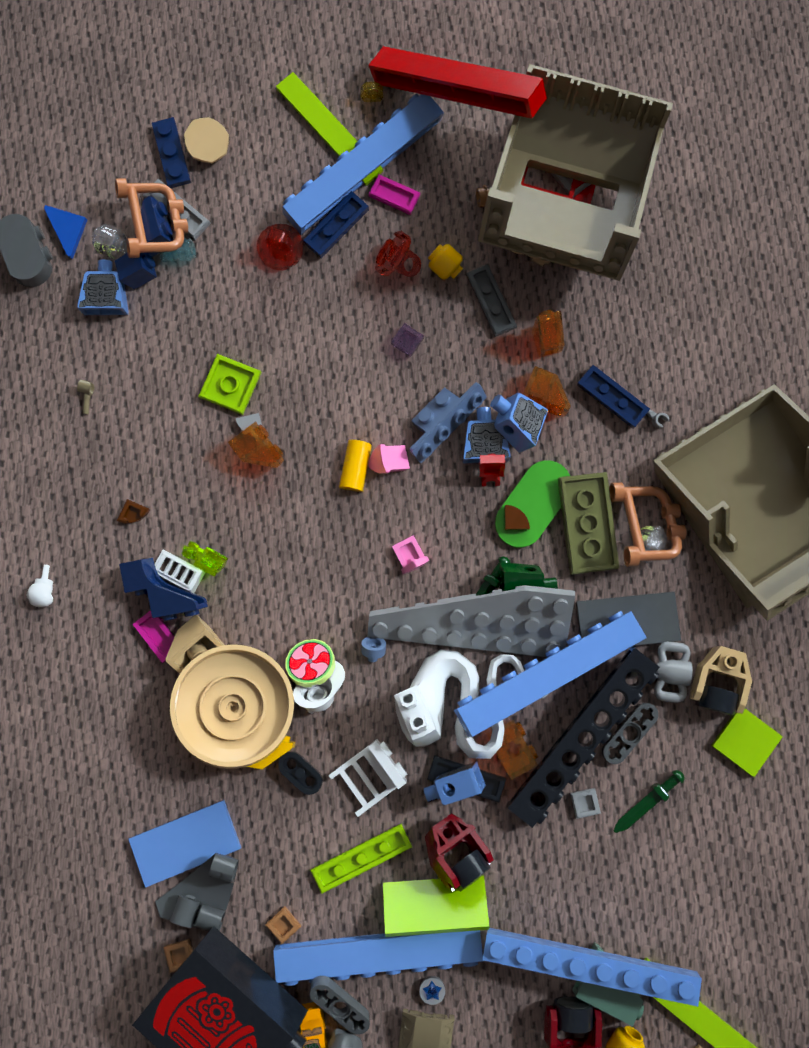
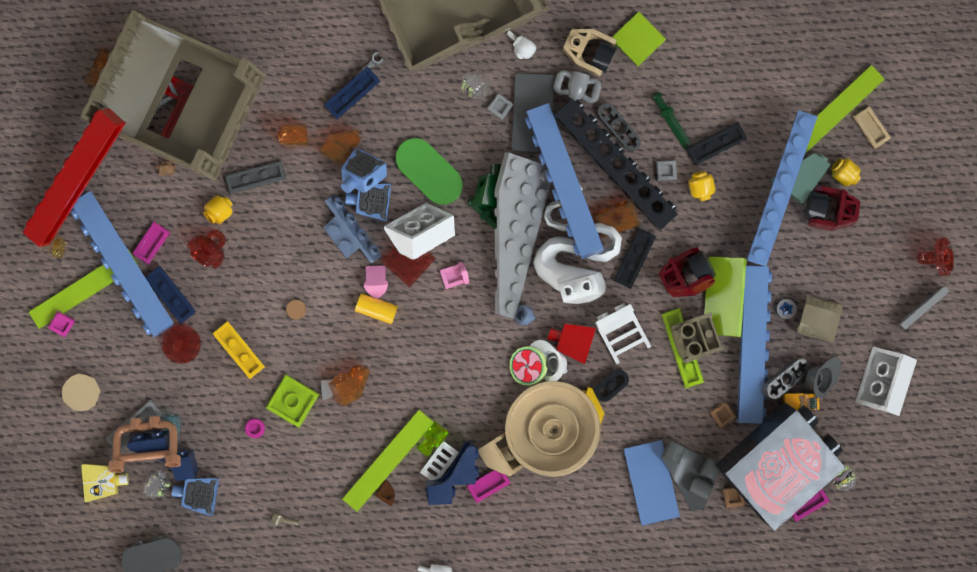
camera: 90 degrees left, 5 degrees up
(67, 227) = (136, 519): blue tile -> none
(101, 176) = (100, 482): none -> light yellow torso
(171, 152) = (83, 424): dark blue plate -> none
(172, 508) = (388, 460): none -> lime tile
(191, 346) = (255, 428): none -> dark pink tile
(281, 312) = (238, 350): none -> yellow plate
(284, 109) = (61, 323): none -> dark pink tile
(340, 371) = (296, 309): none -> medium nougat tile
(349, 716) = (573, 341): none -> red torso
(375, 876) = (696, 338): none -> dark tan slope
(407, 340) = (278, 251): clear purple plate -> none
(420, 495) = (407, 268): none -> clear red tile
(458, 502) = (420, 230): none -> white slope
(466, 781) = (635, 258): medium blue torso -> none
(491, 468) = (397, 200): red plate -> none
(515, 519) = (440, 188): reddish brown tile -> none
(574, 853) = (702, 185): none -> yellow head
(588, 523) = (451, 130): olive tile -> none
(629, 579) = (500, 106): none -> light grey tile
(631, 864) = (716, 143): none -> black tile
(669, 511) = (453, 65): nougat bar -> none
(709, 596) = (523, 47): none -> white piece

